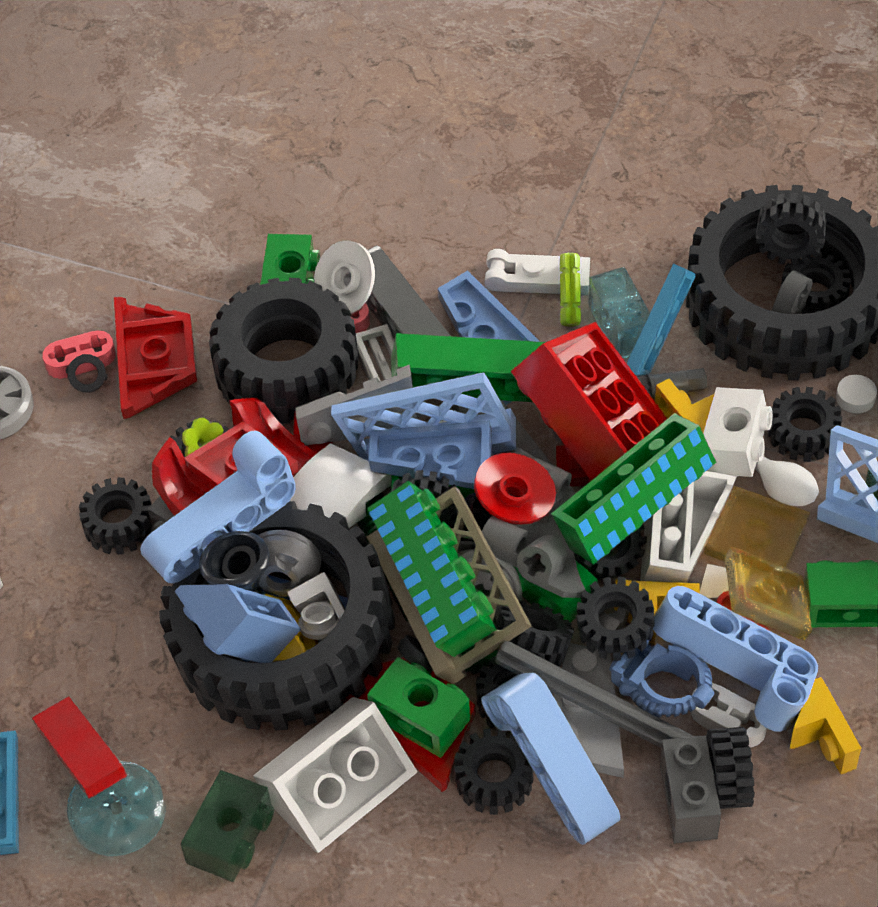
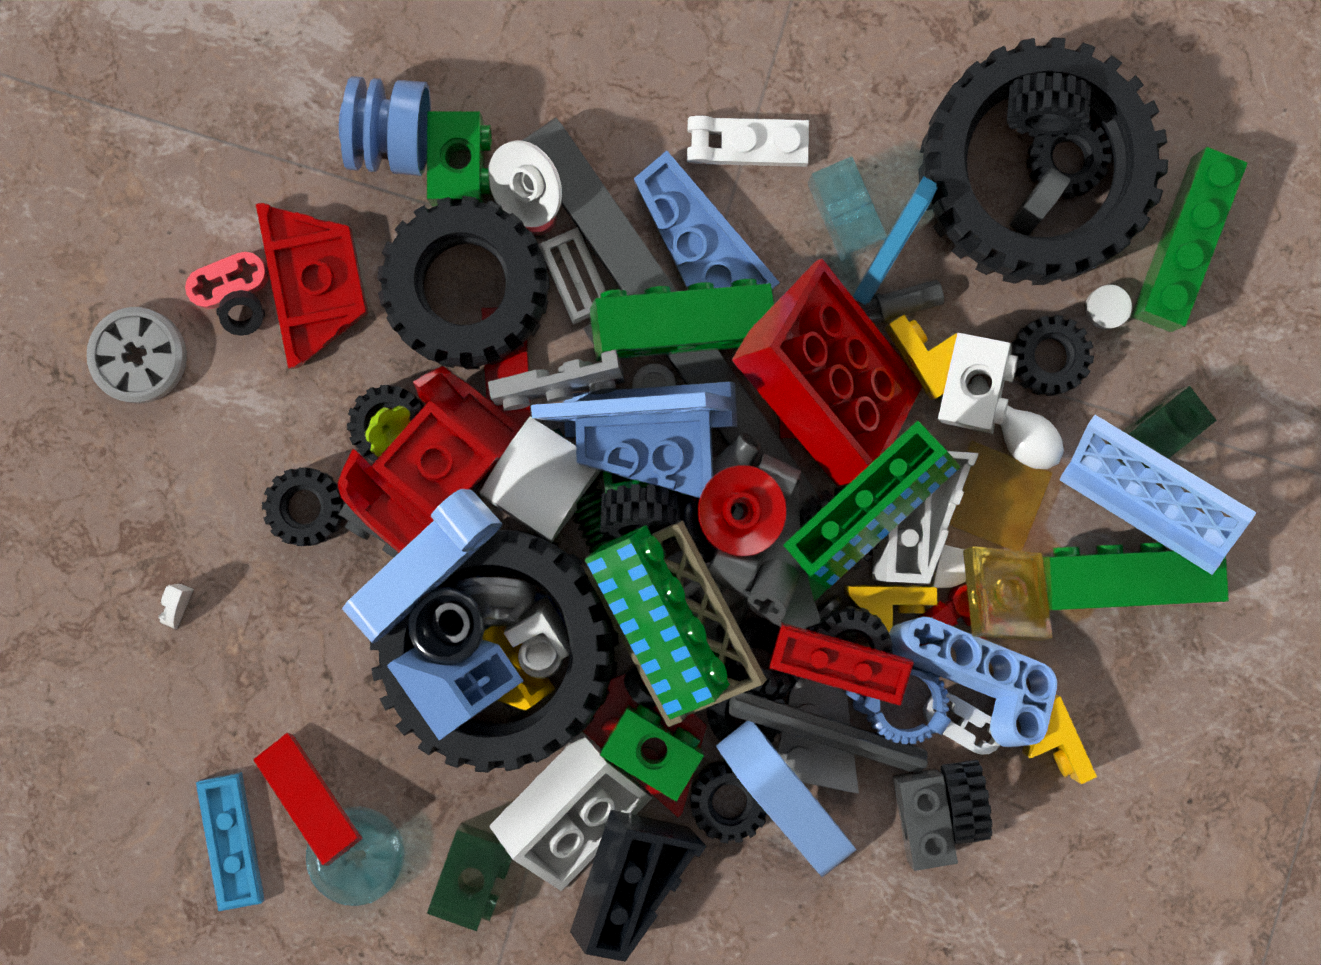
camera: 10 degrees left, 35 degrees up
(226, 242) = (381, 125): none -> medium blue wheel
(388, 824) = (629, 880): none -> black wedge
(570, 290) = (787, 176): lime axle -> none
(603, 616) = (841, 664): none -> red tile

